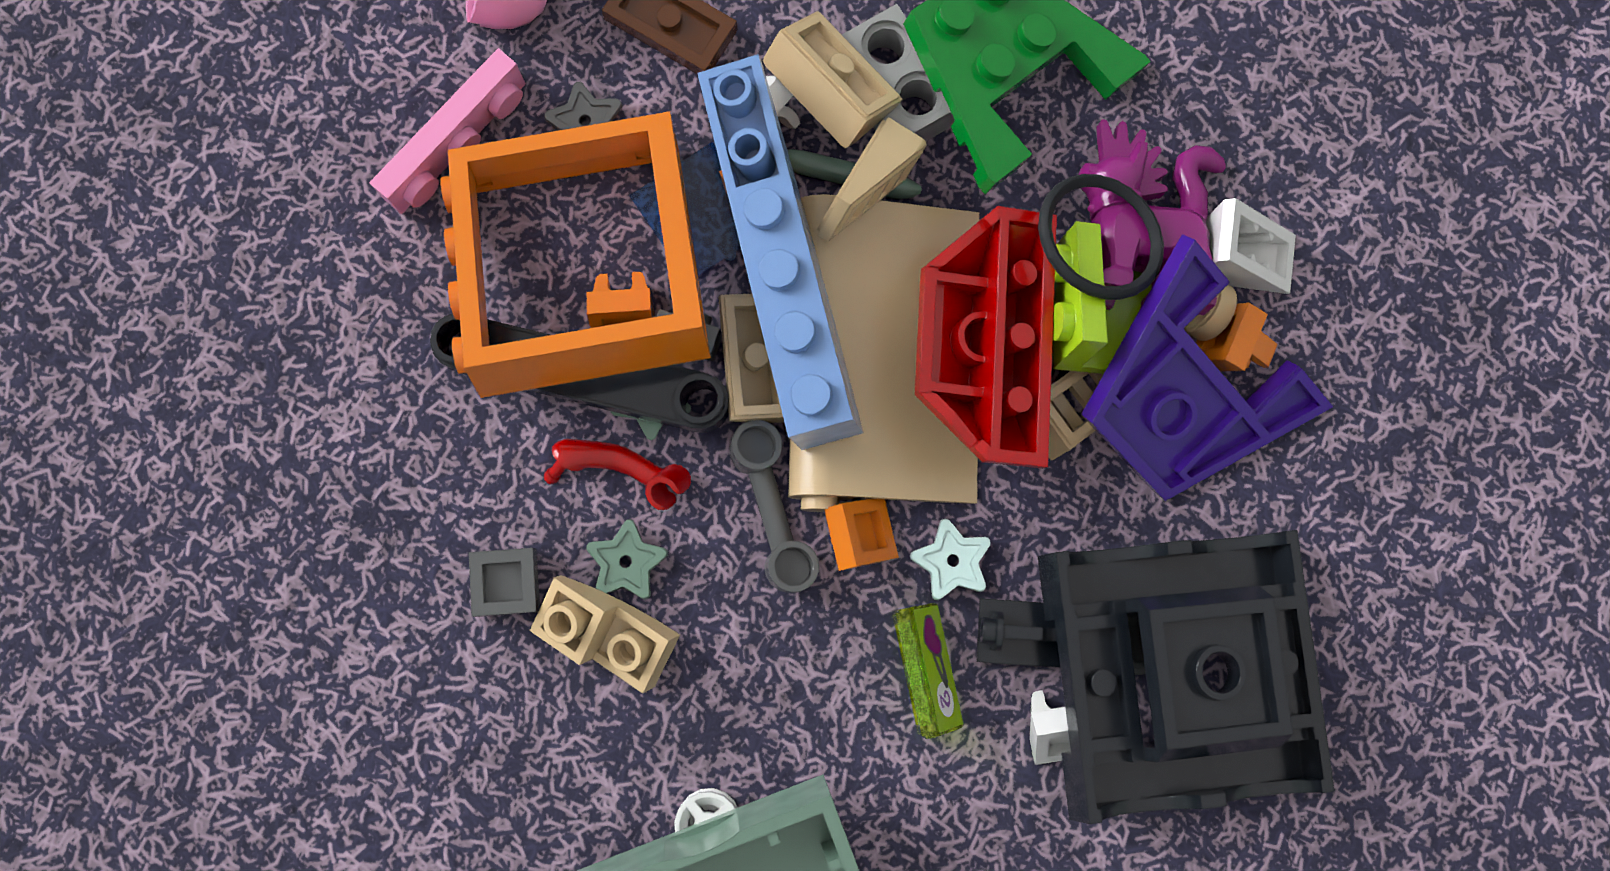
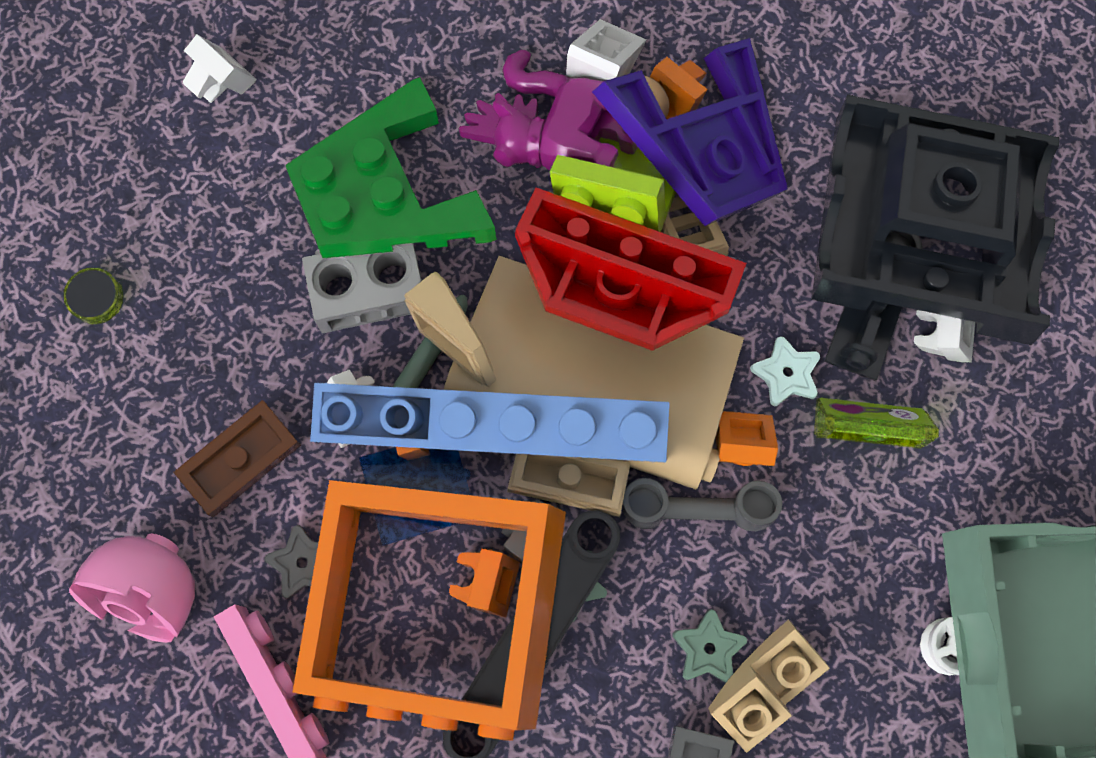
camera: 70 degrees left, 5 degrees down
(583, 454) = (604, 656): red piece -> none
(830, 78) = (350, 332): tan slope -> none
(1066, 272) = (573, 196): black tyre -> none

